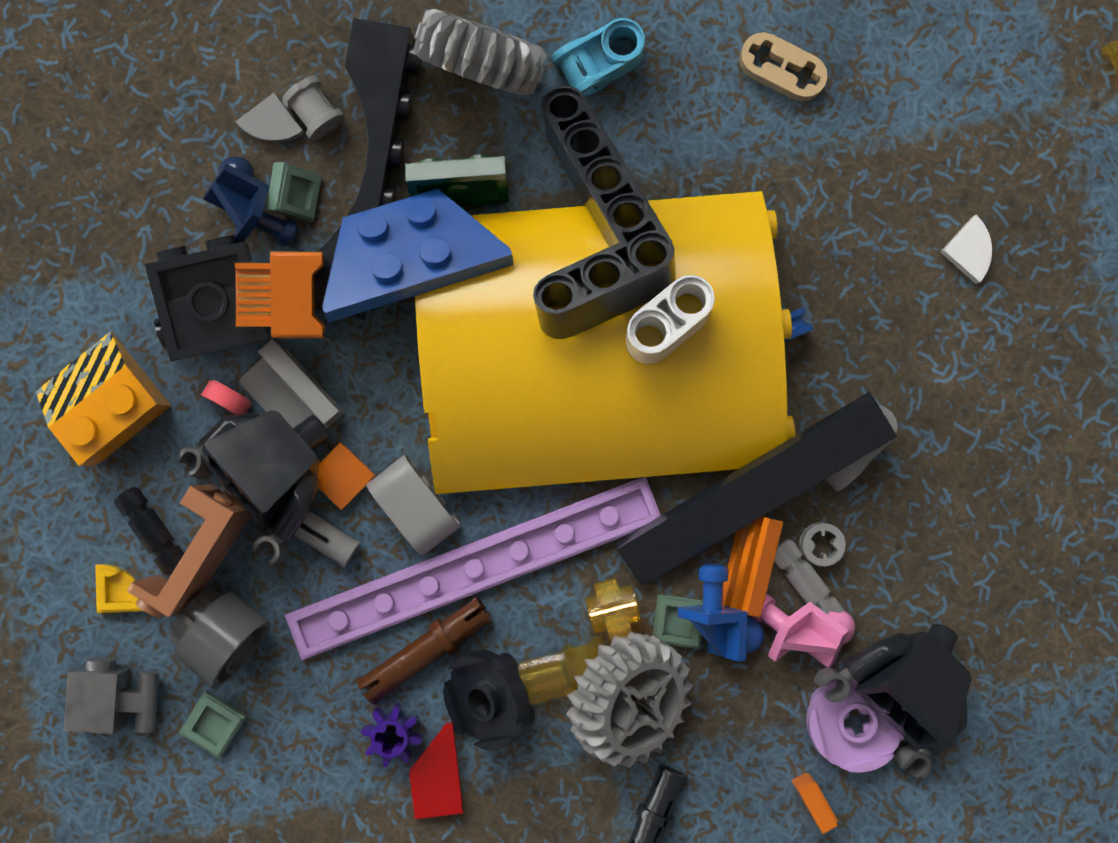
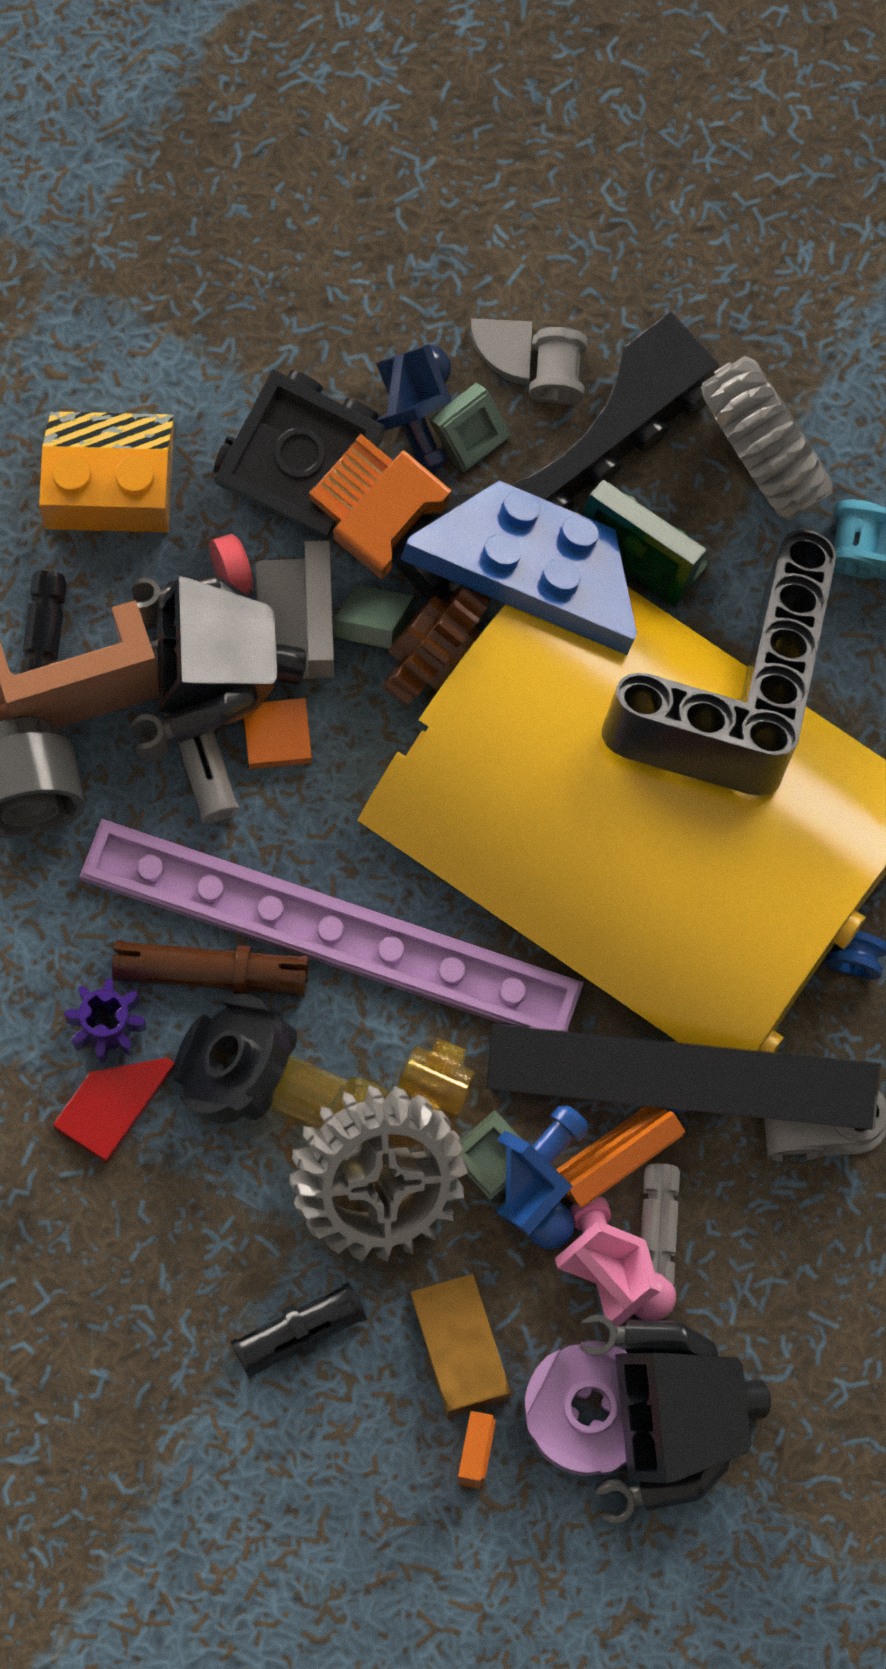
camera: 35 degrees right, 15 degrees down
(337, 359) = (373, 616): none -> sand green tile
(391, 352) = (434, 643): none -> reddish brown gear
(413, 505) = (325, 816): light grey beam -> none
(669, 319) = (732, 804): white beam -> none
(754, 747) = (460, 1346): none -> pearl gold slope
(837, 542) = (691, 1191): light grey bush -> none

